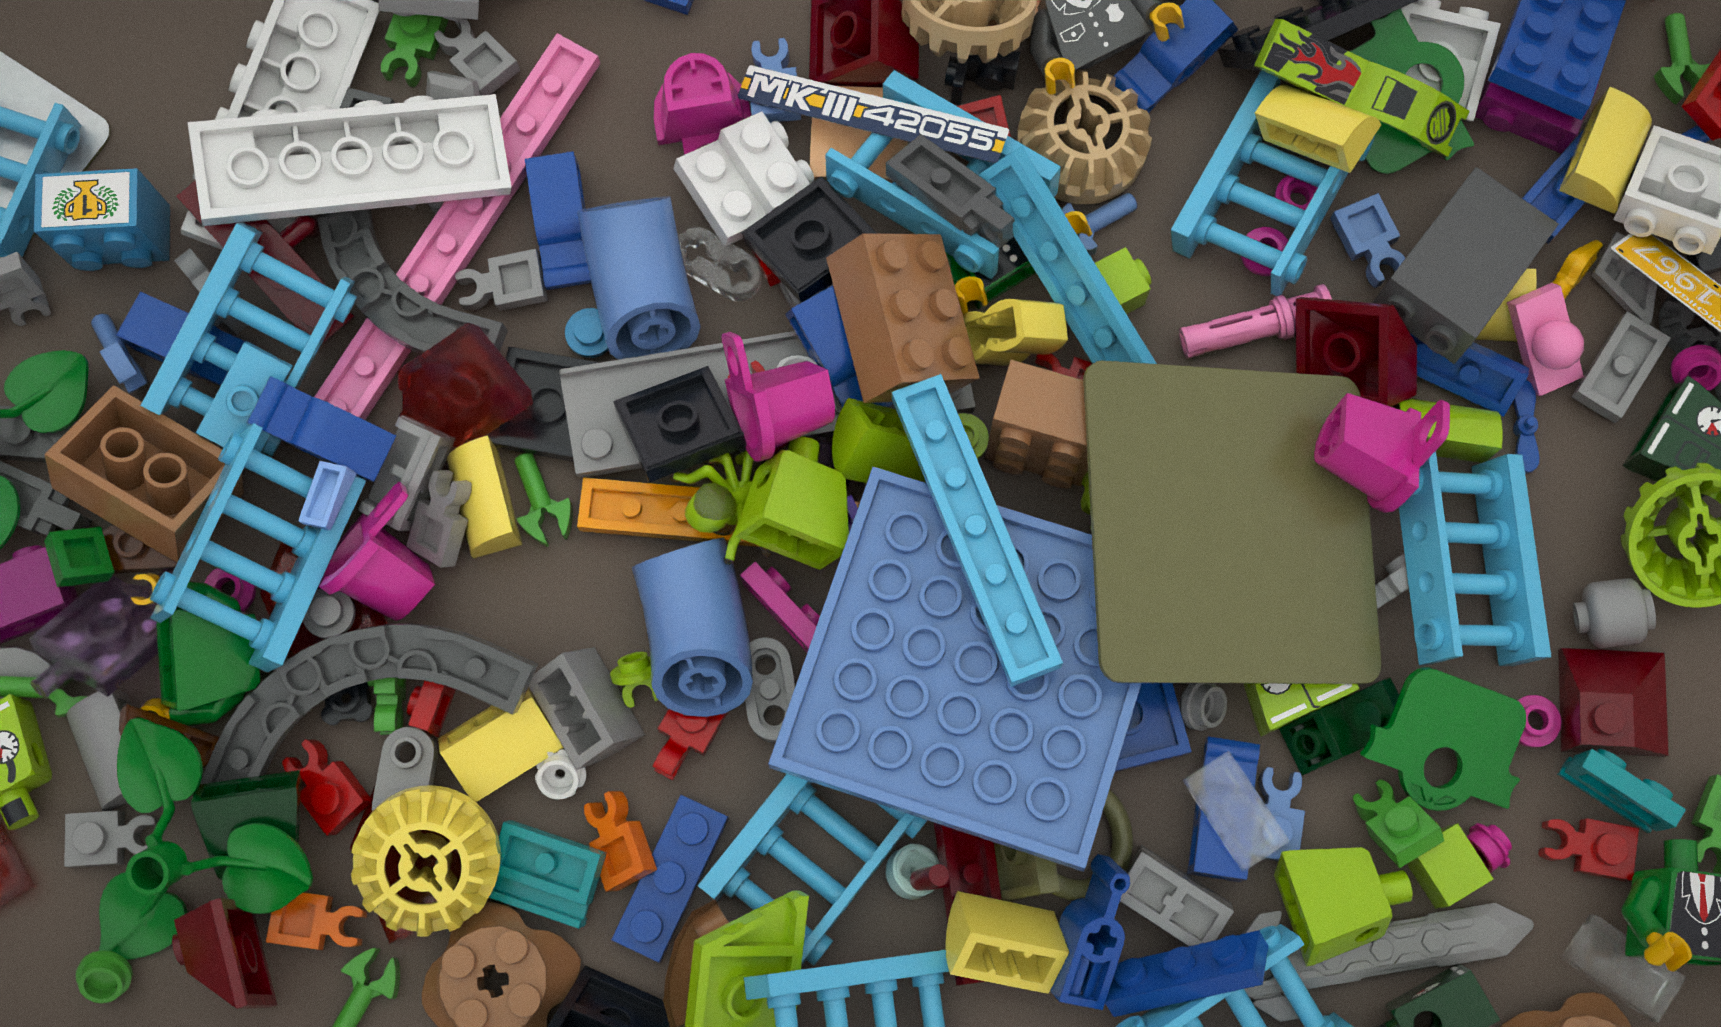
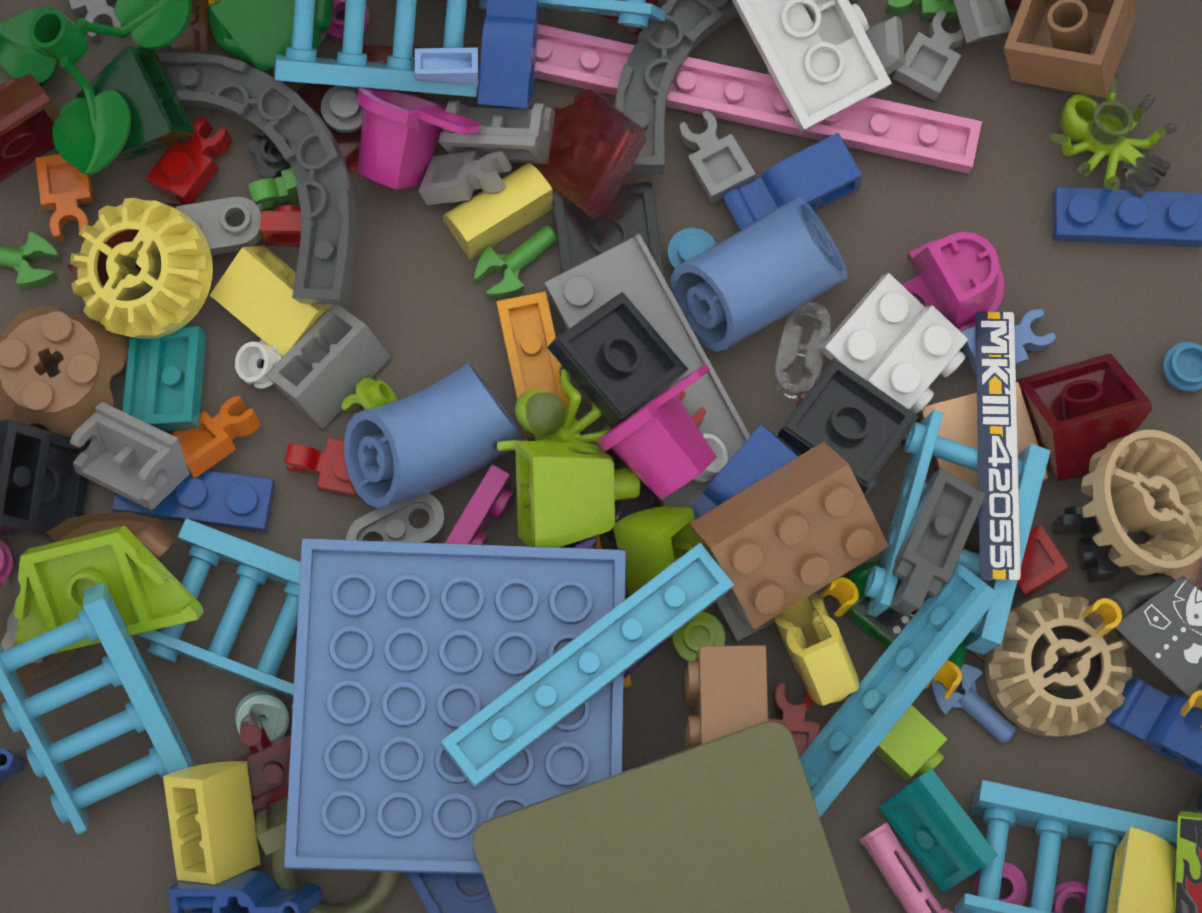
camera: 70 degrees right, 0 degrees up
(615, 926) = (129, 456): none -> light grey hinge
(1202, 284) = (937, 831): none -> teal plate

